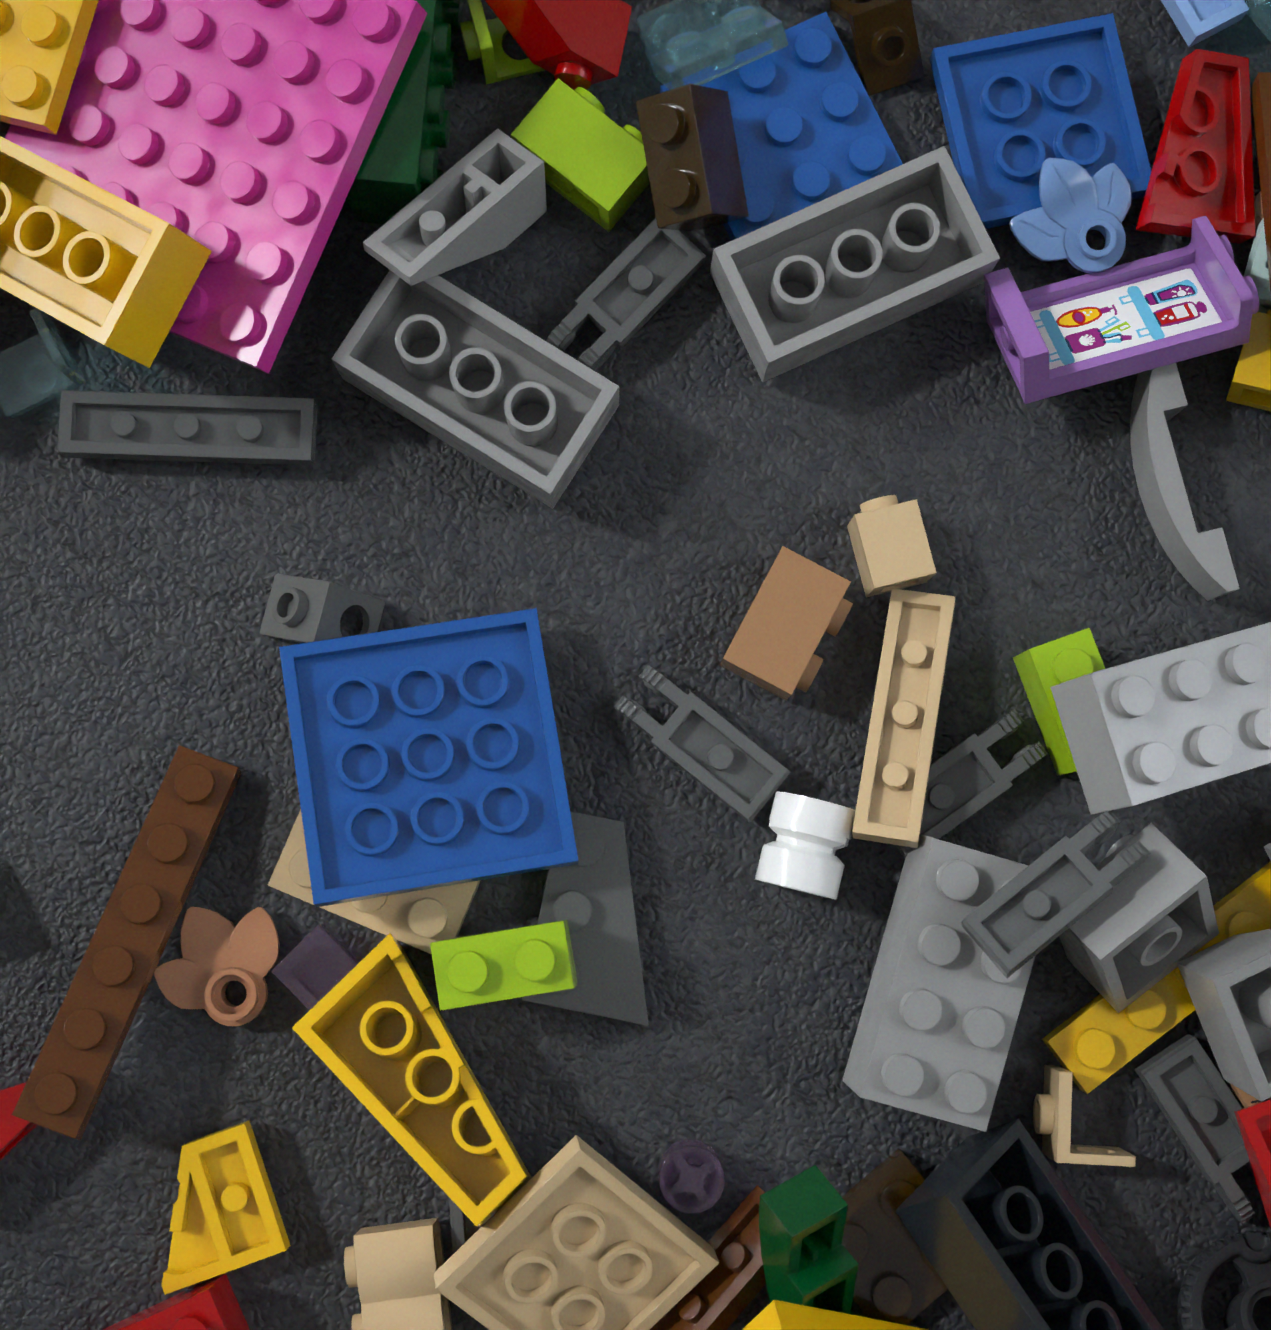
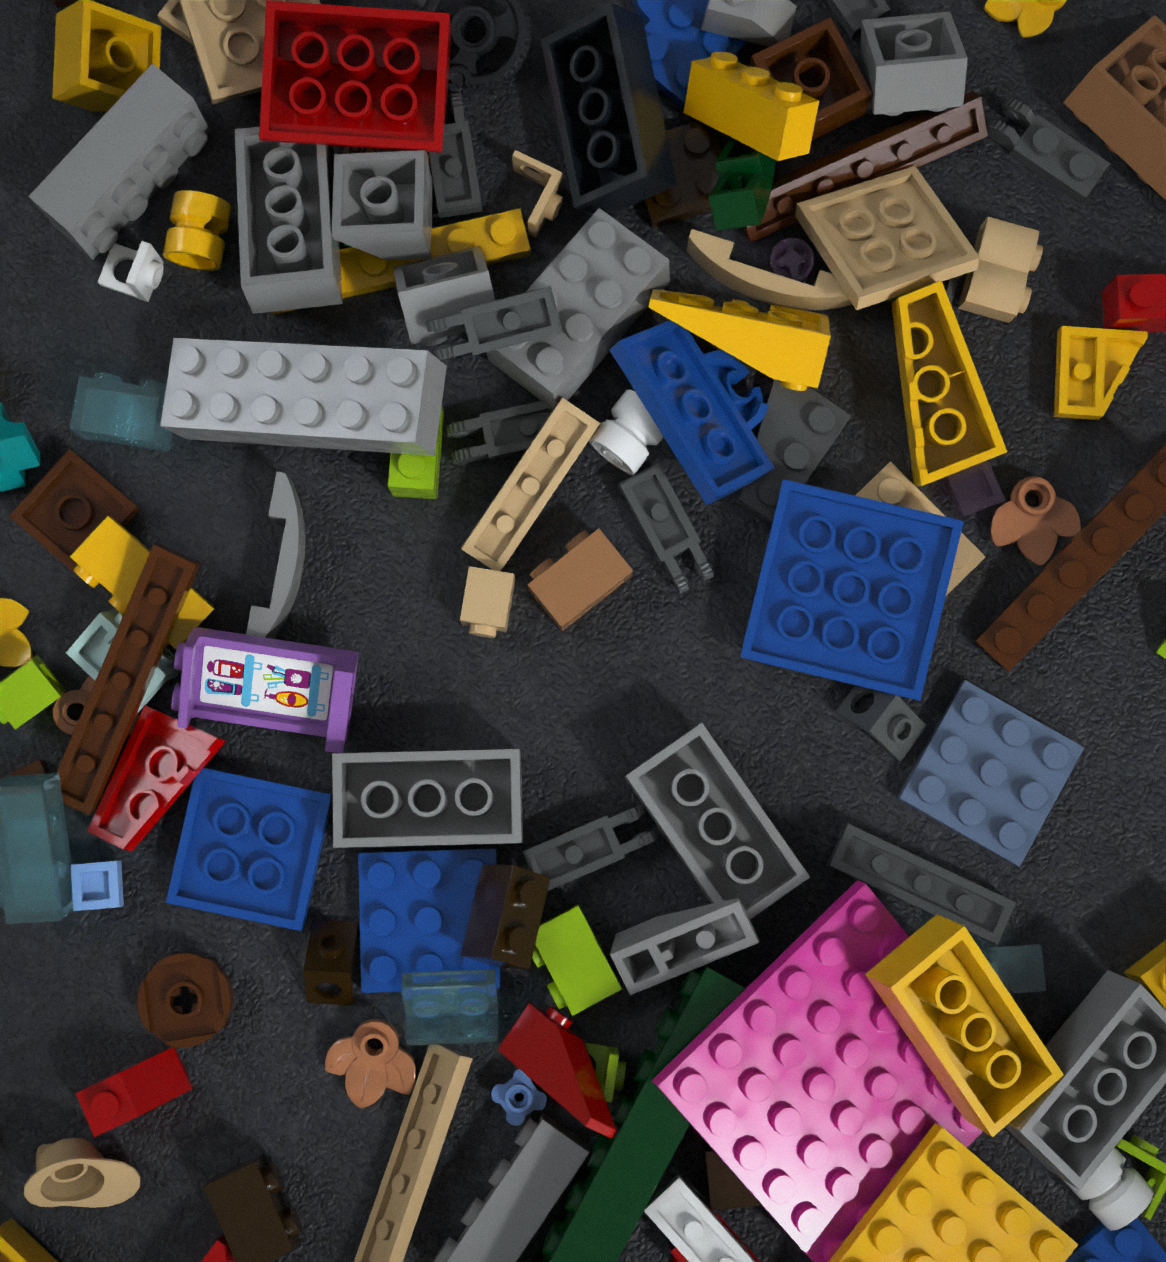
camera: 155 degrees left, 0 degrees up
(153, 607) = (990, 773): none -> sand blue plate
(503, 964) = (856, 435): lime brick -> none
(668, 1048) = (781, 343): none -> yellow wedge
(734, 911) = (697, 408): none -> blue plate
(794, 1139) = (714, 257): none -> tan slope
(1070, 208) = (260, 774): medium blue plate -> none

